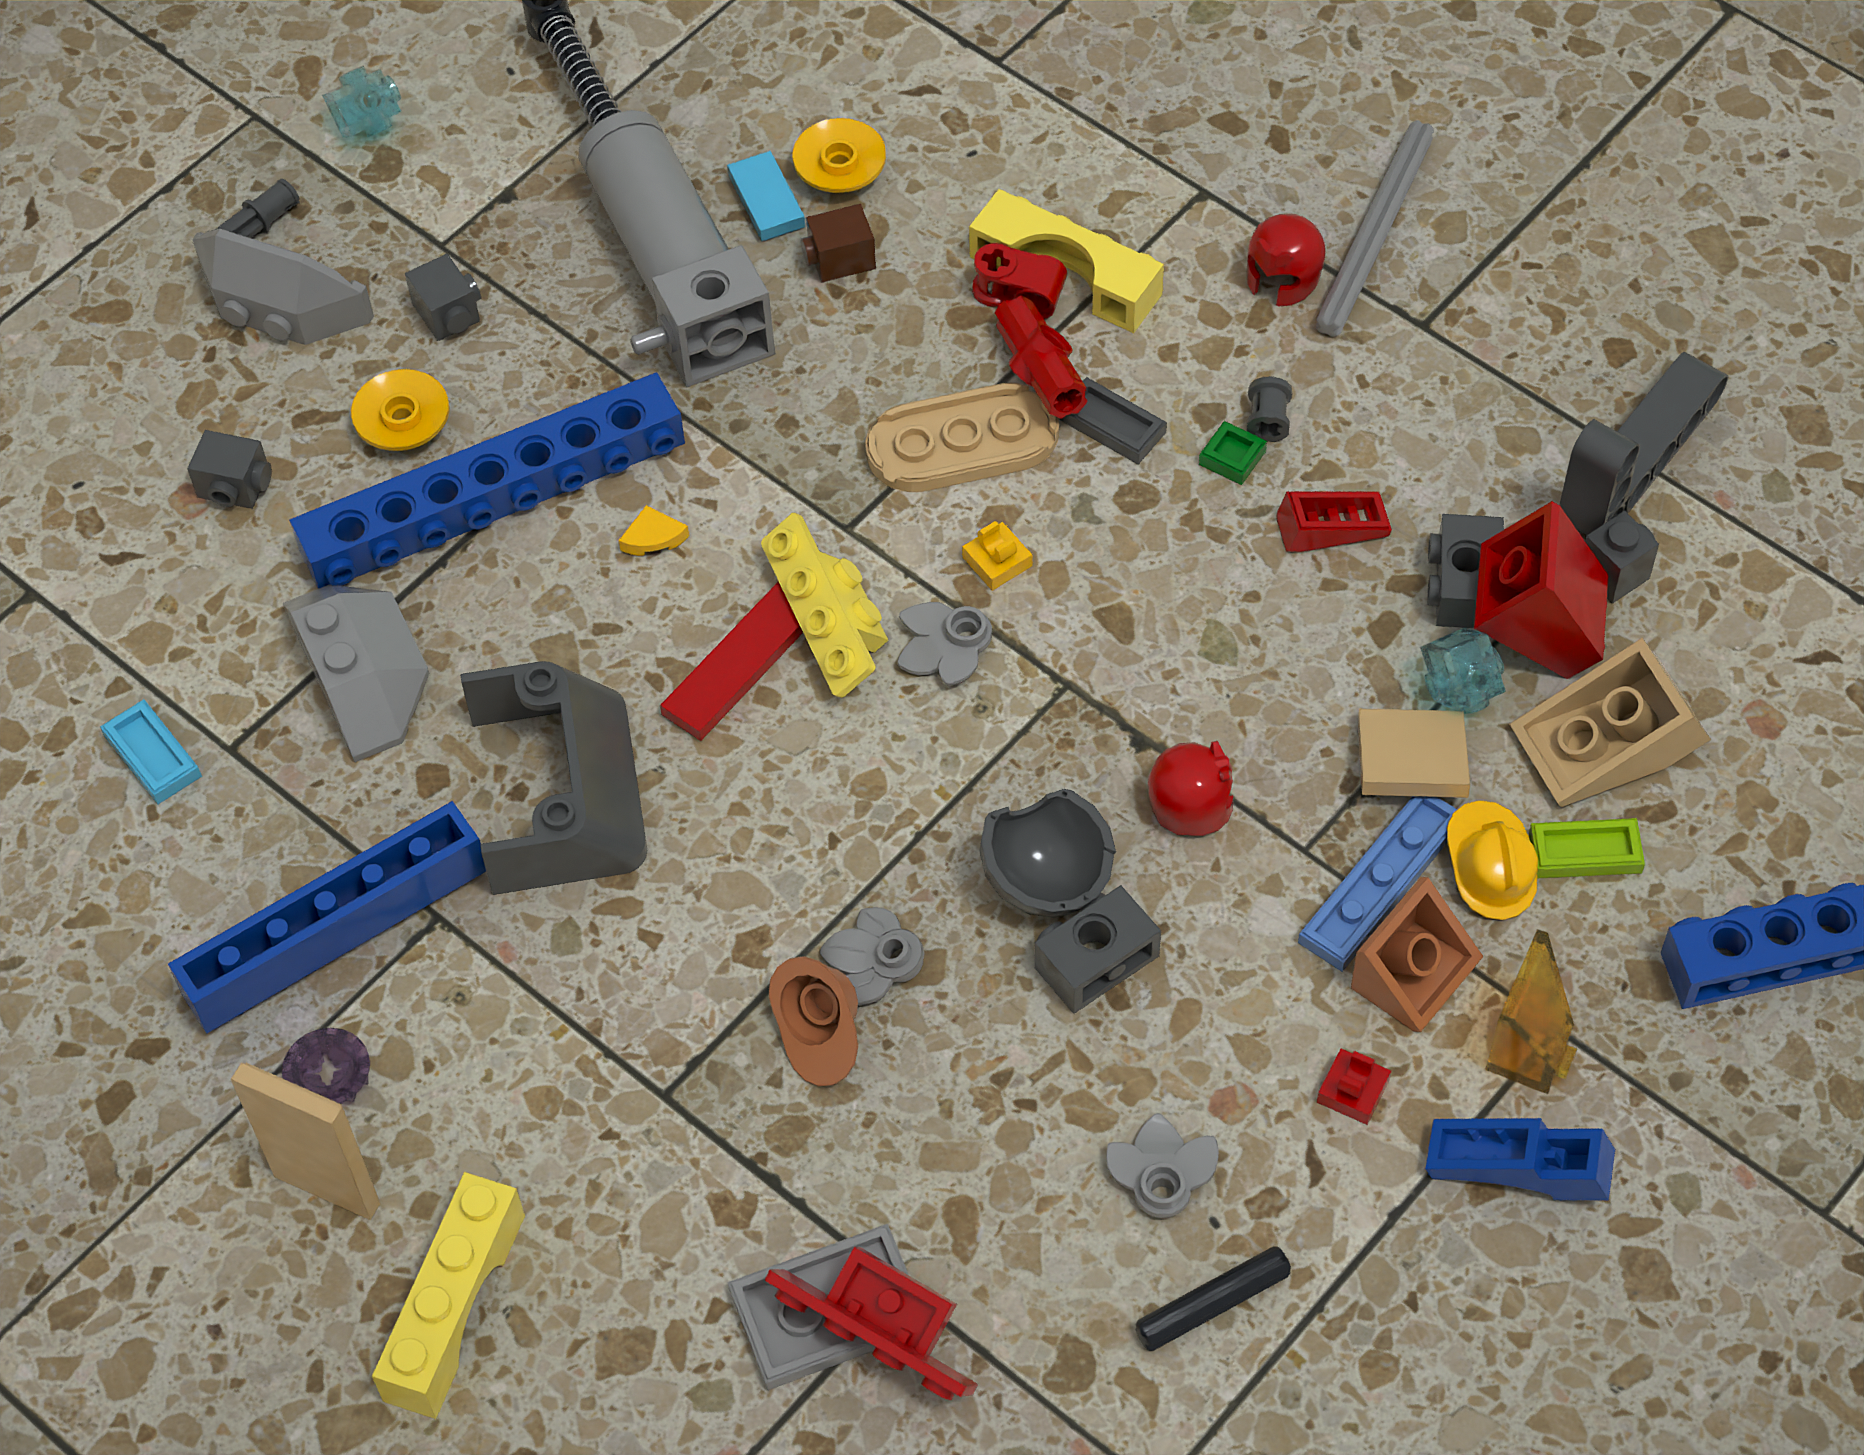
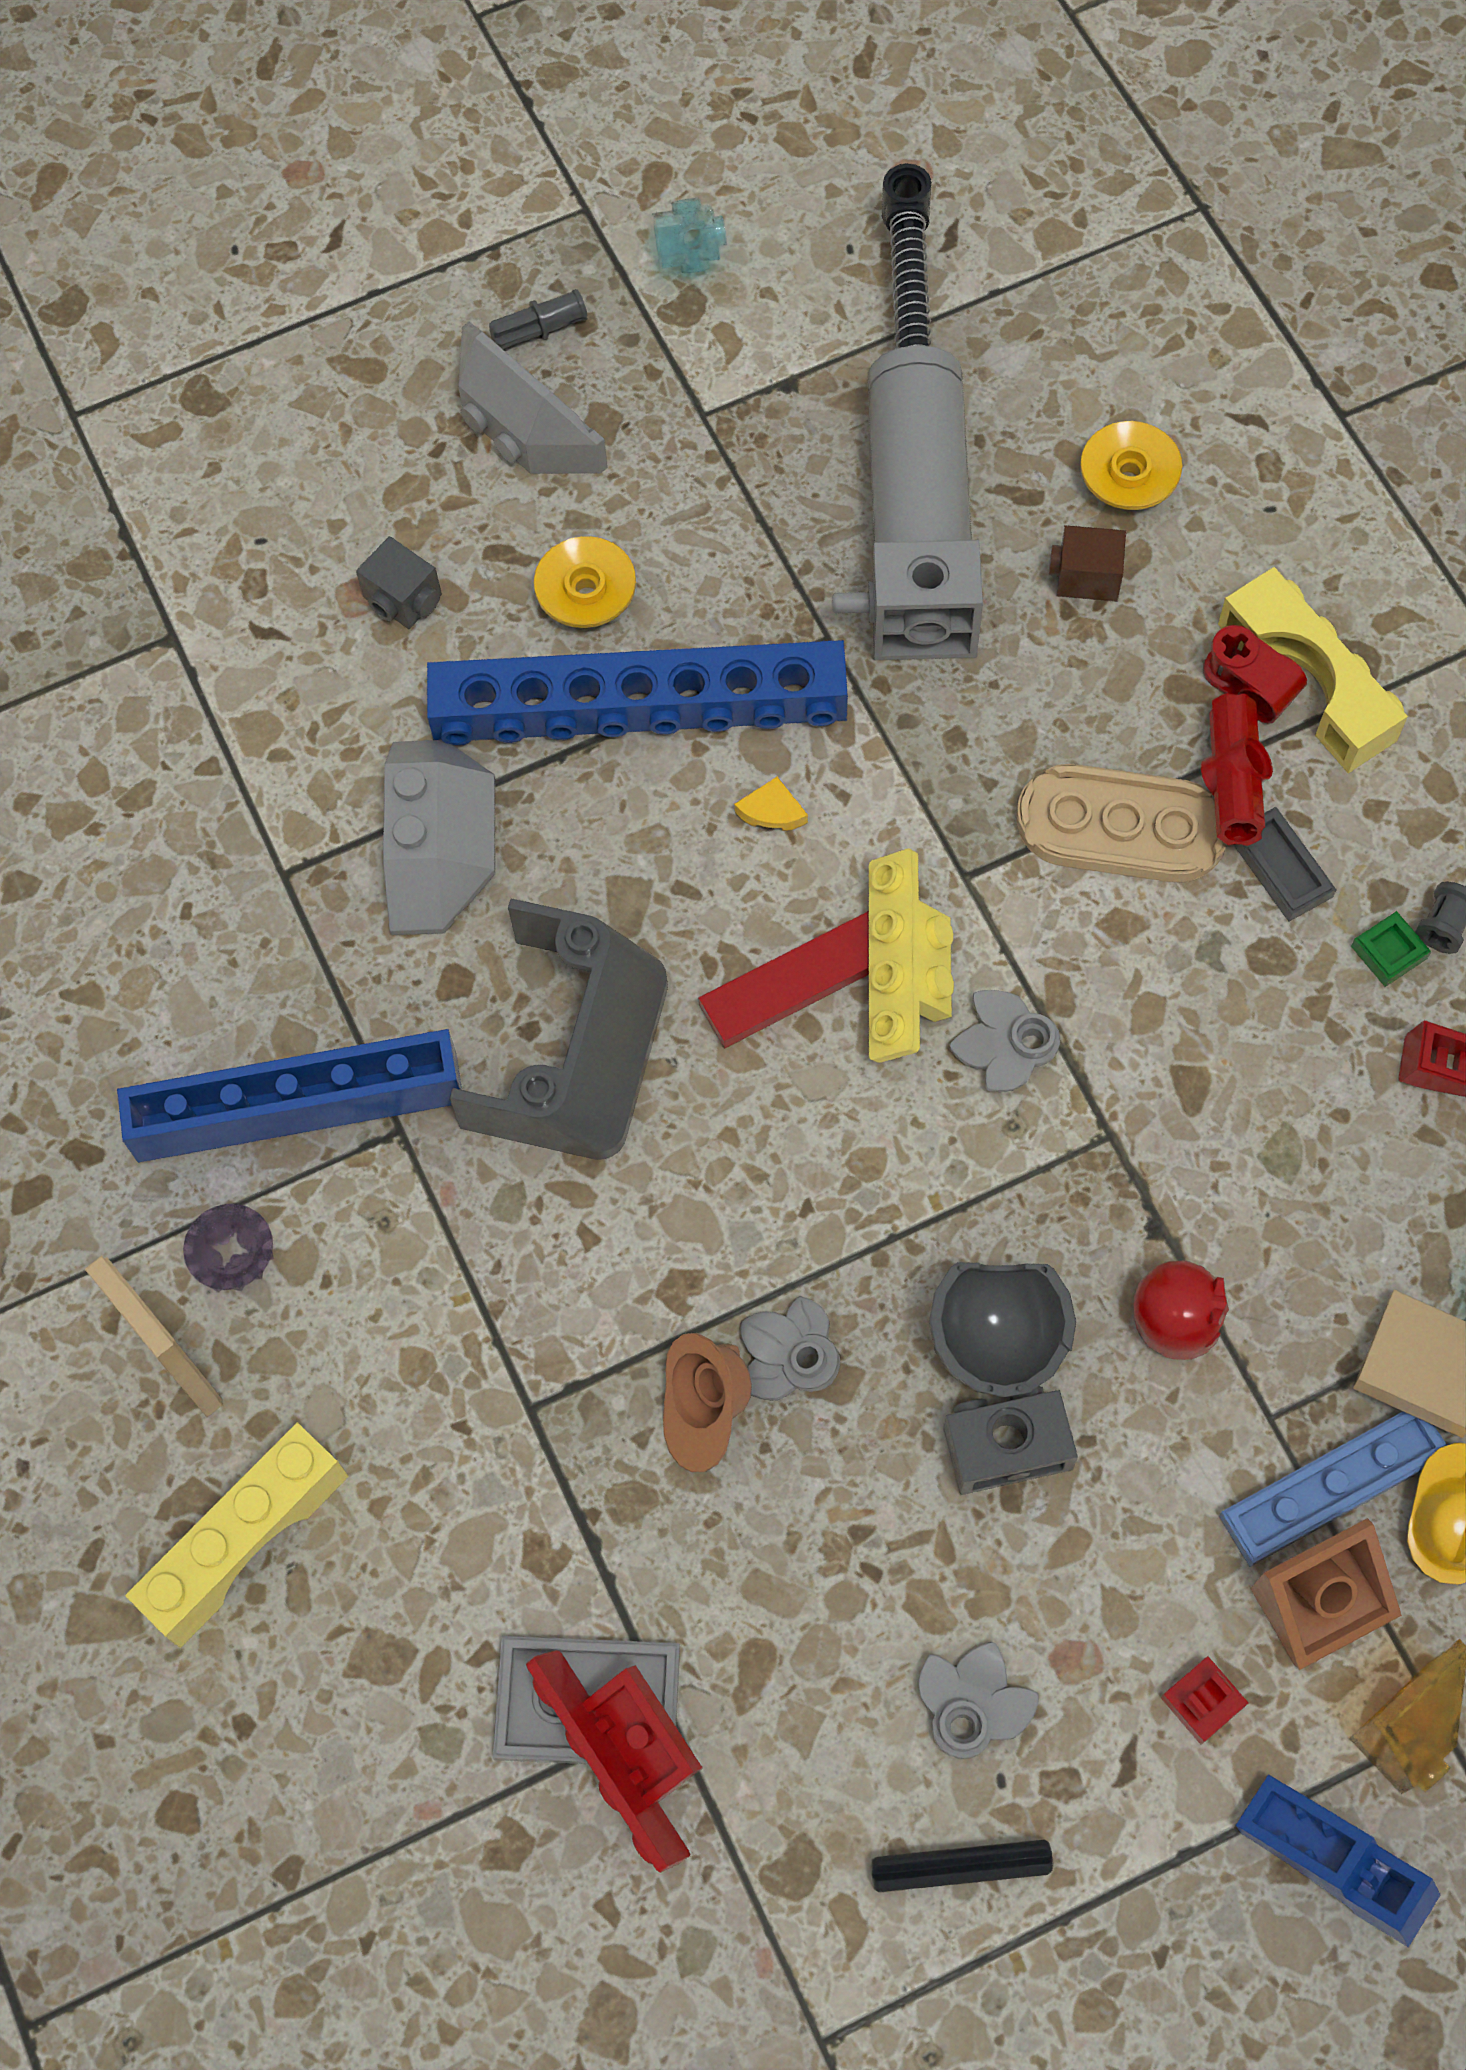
camera: 25 degrees right, 10 degrees up
(151, 751) = (209, 848): medium azure tile -> none
(443, 296) = (678, 475): dark grey brick -> none
(766, 196) = (1041, 480): medium azure tile -> none
(997, 555) = (1100, 967): yellow tile -> none

